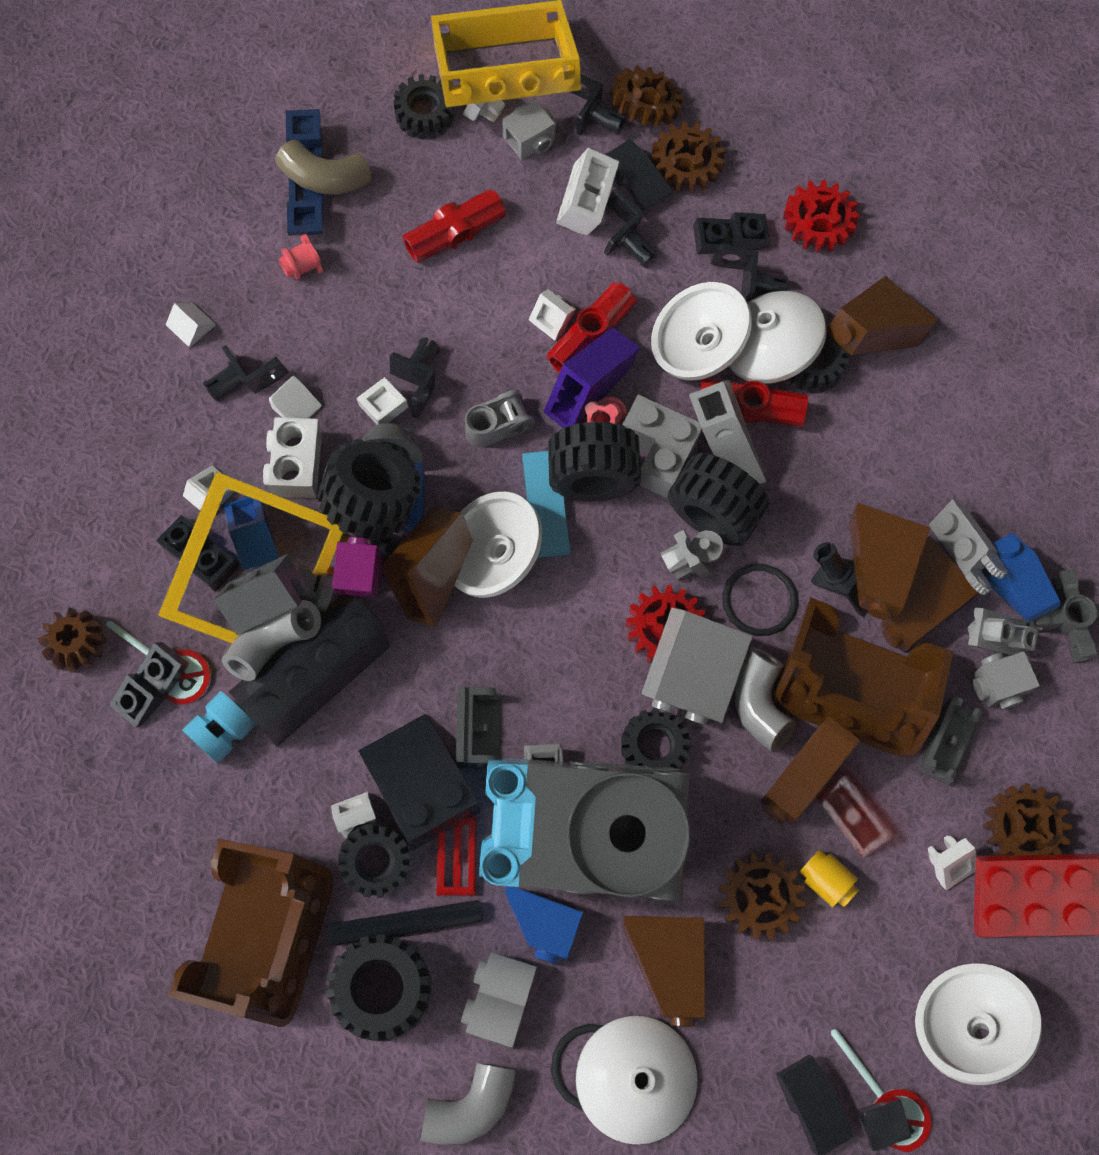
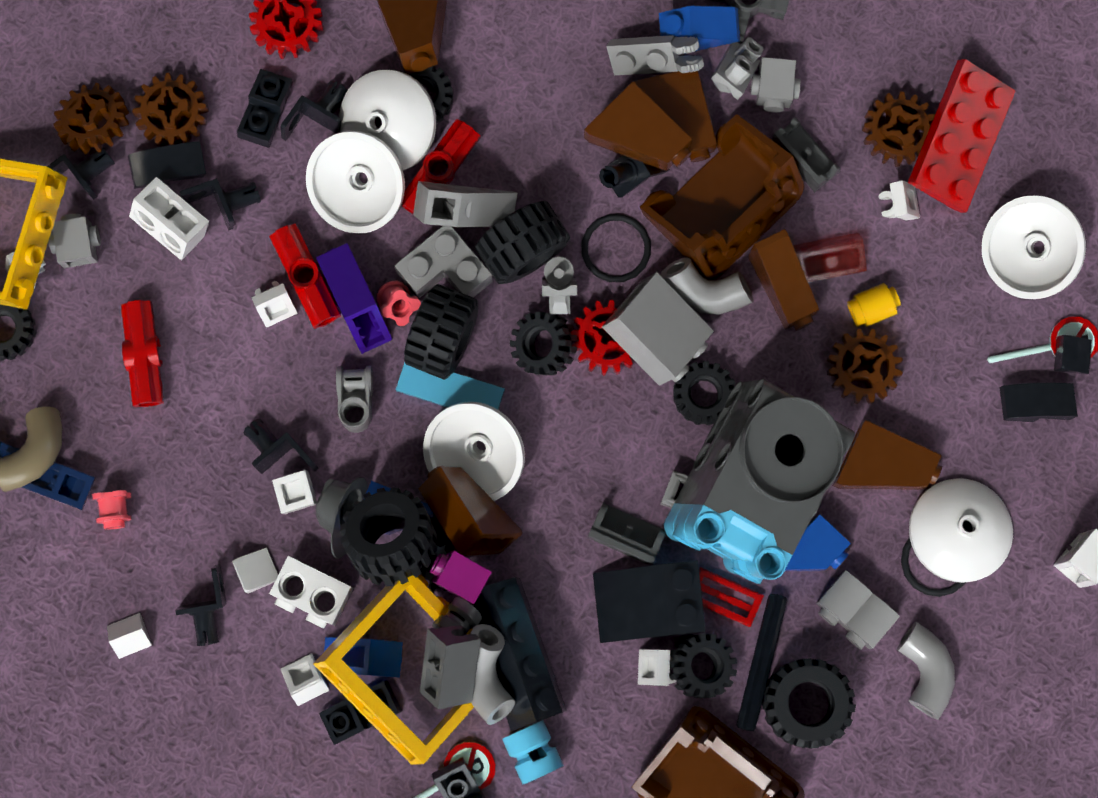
camera: 65 degrees left, 10 degrees up
(635, 579) = (526, 339): none -> black tyre

